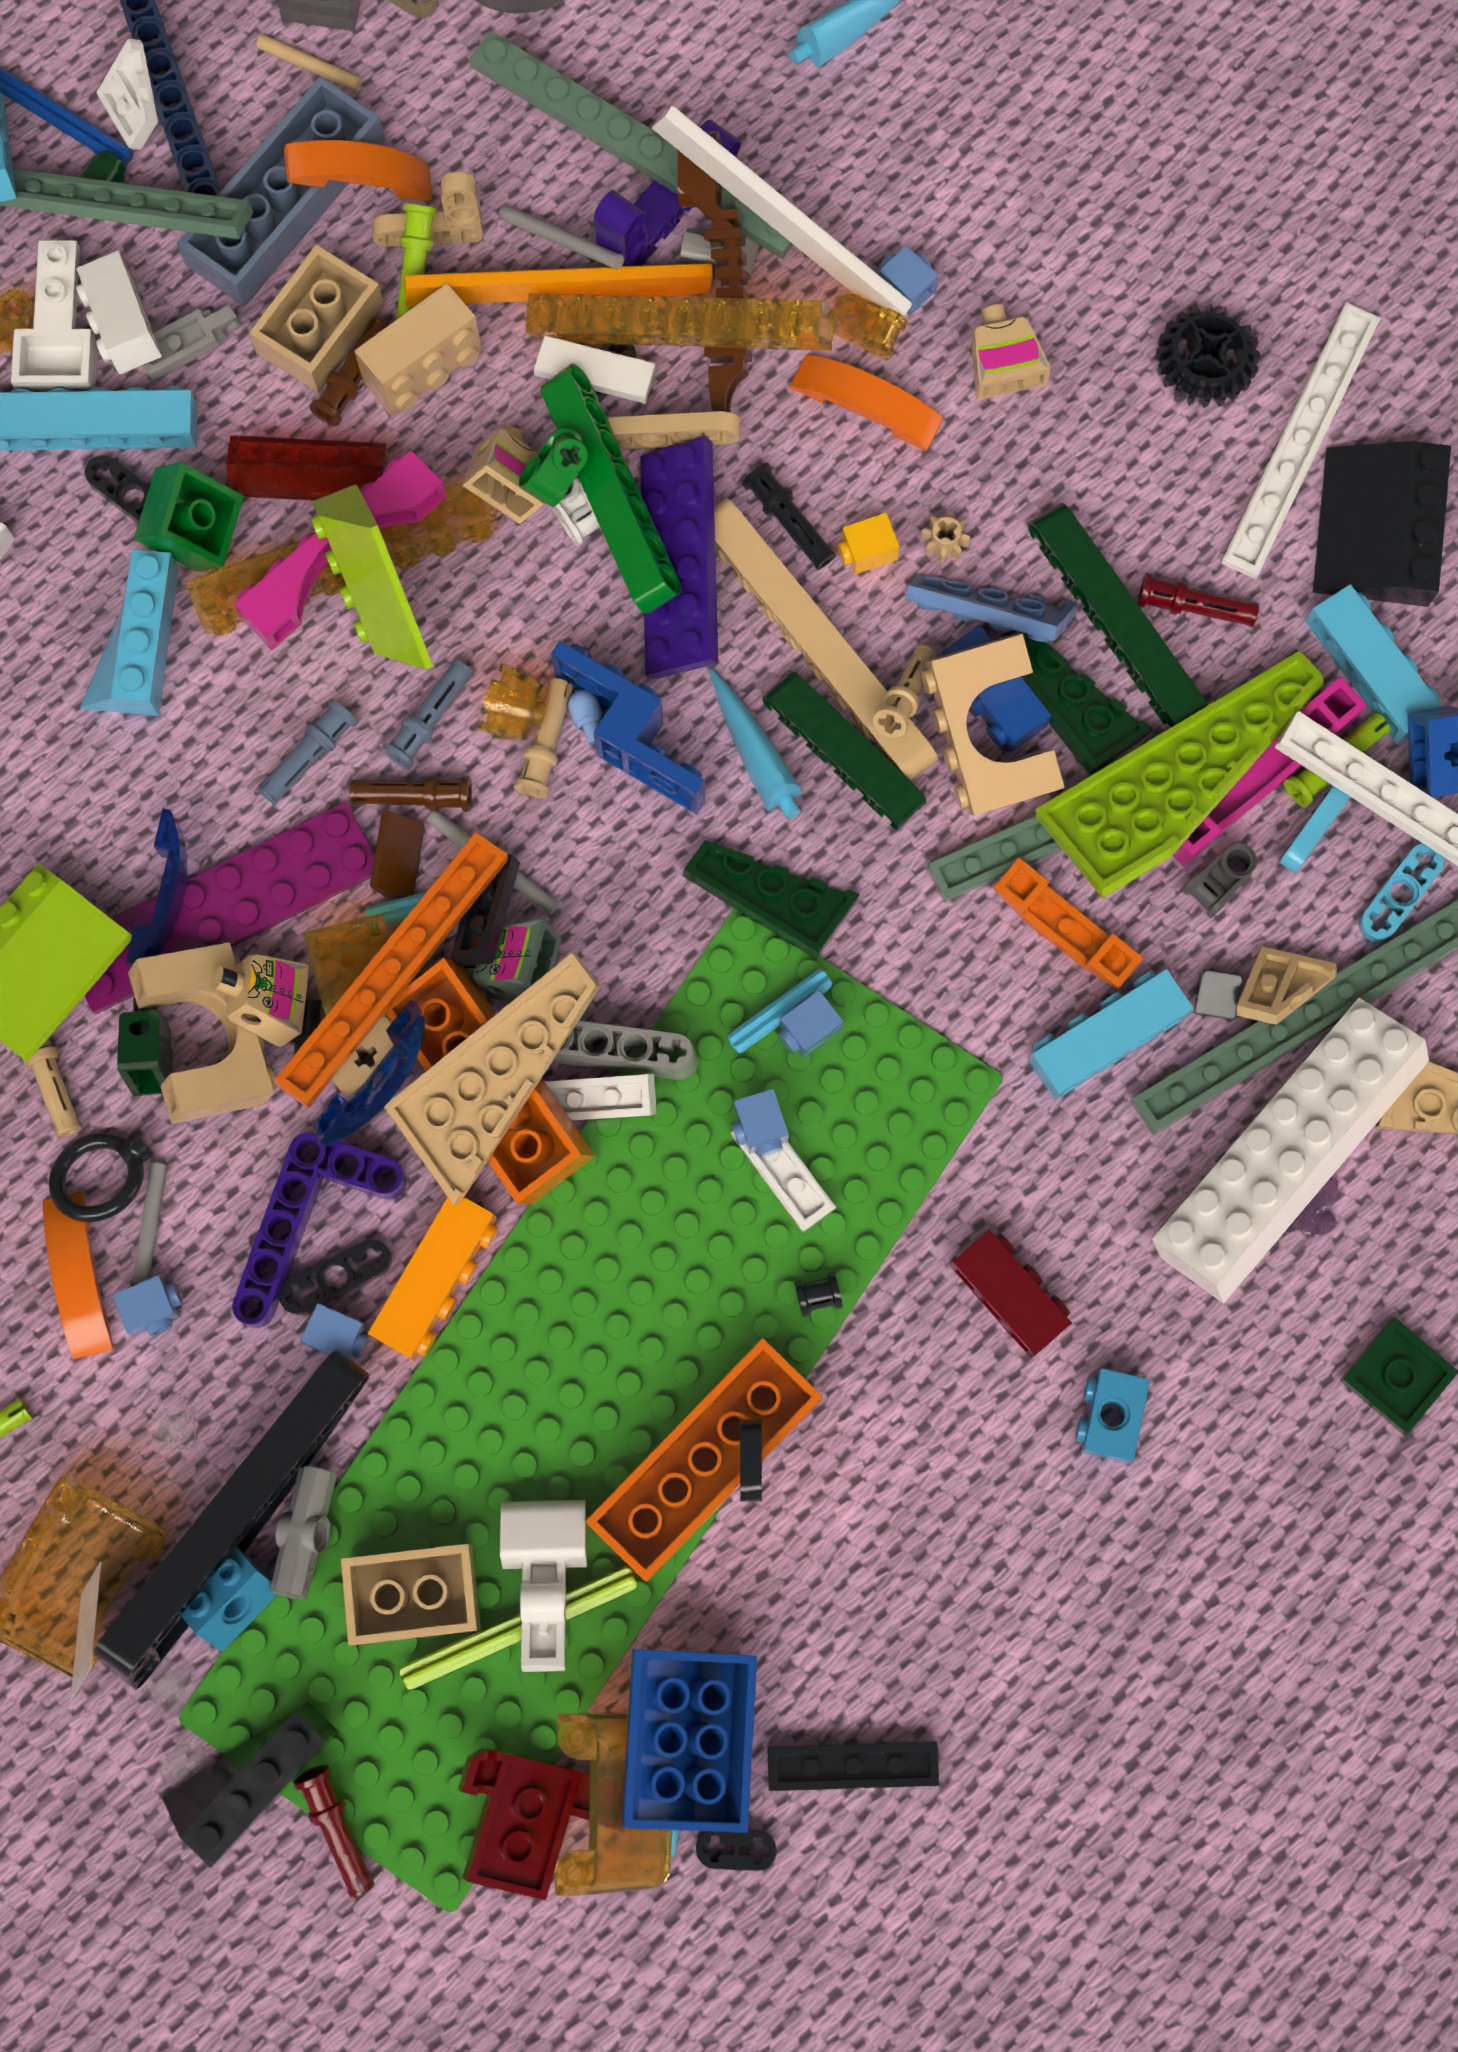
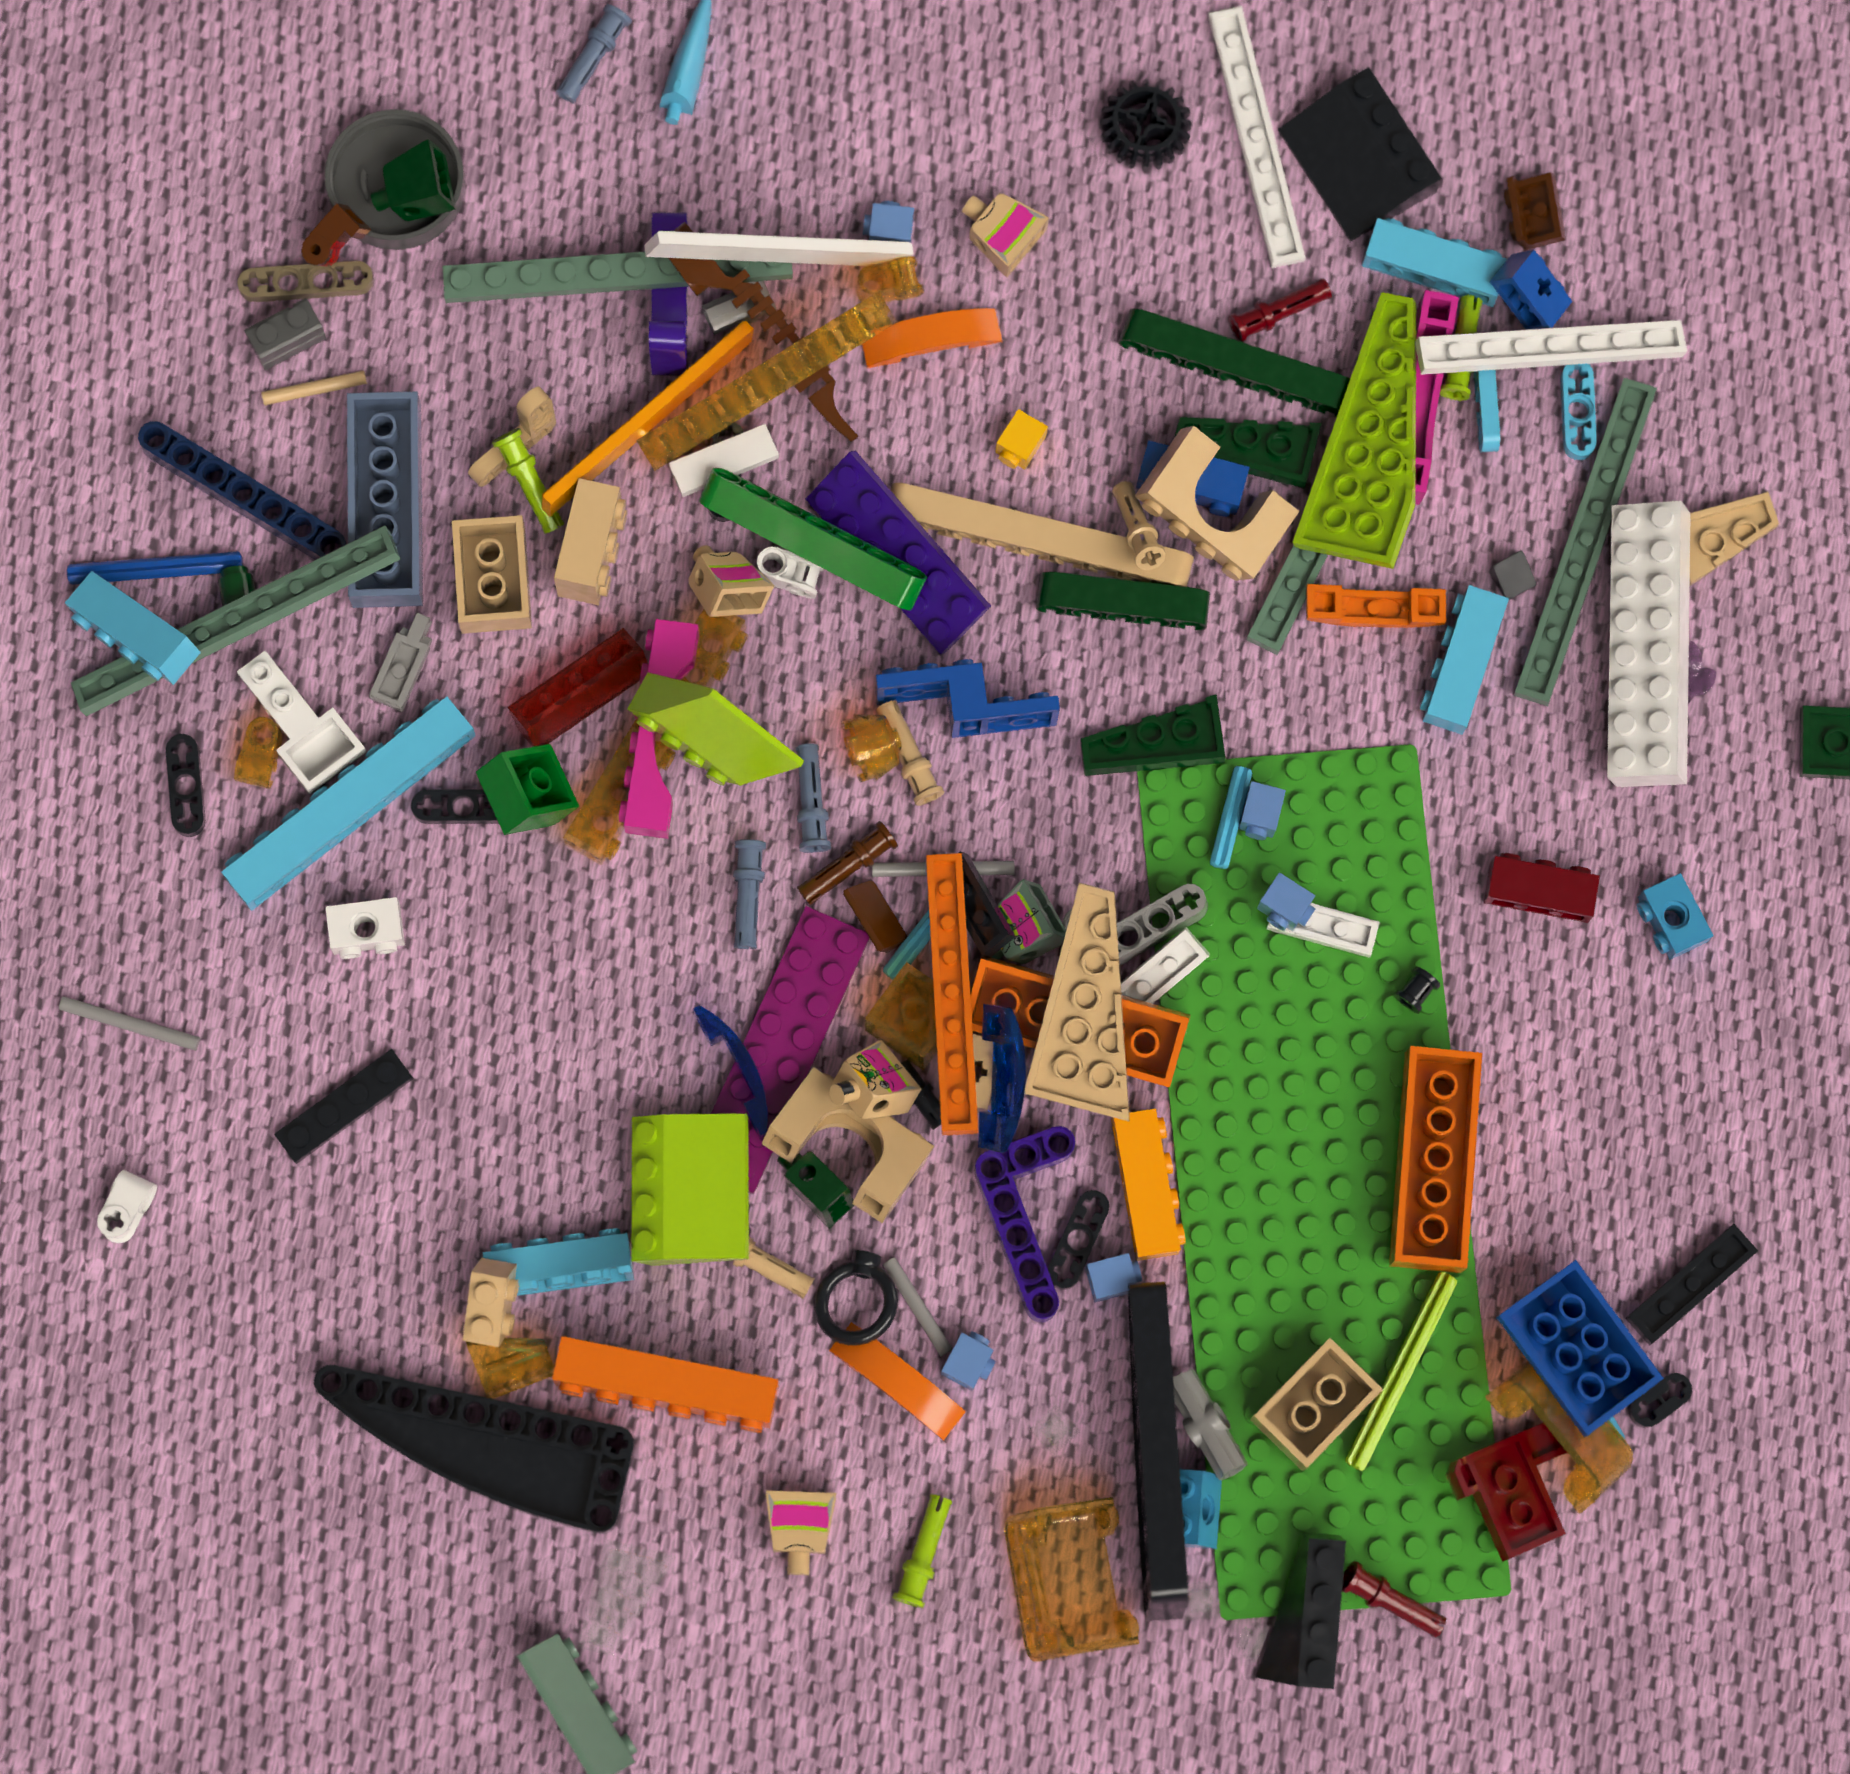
camera: 45 degrees left, 0 degrees up
(86, 1630) = (1121, 1602): white sticker -> none
(117, 313) = (342, 680): white brick -> none
(129, 95) = (209, 513): white wing -> none
(136, 653) = (561, 915): medium azure wedge -> none
(343, 385) = (548, 608): reddish brown pin -> none
(358, 163) = (429, 440): orange slope -> none
(543, 1542) = (1374, 1300): white plate -> none
(551, 471) = (767, 555): green piece -> none
(561, 237) = (618, 381): light grey bar -> none
(585, 713) = (922, 713): light blue cylinder -> none
(674, 429) = (821, 460): tan beam -> none
(750, 1459) = (1472, 1131): black beam -> none
(758, 754) = (1062, 648): medium azure piece -> none
(782, 498) = (990, 472): black pin -> none
(945, 548) = (1079, 397): tan gear -> none
(992, 606) = (1142, 420): medium blue wing -> none
(1217, 883) = (1452, 498): dark grey piece -> none
(1282, 984) = (1552, 535): tan wing -> none

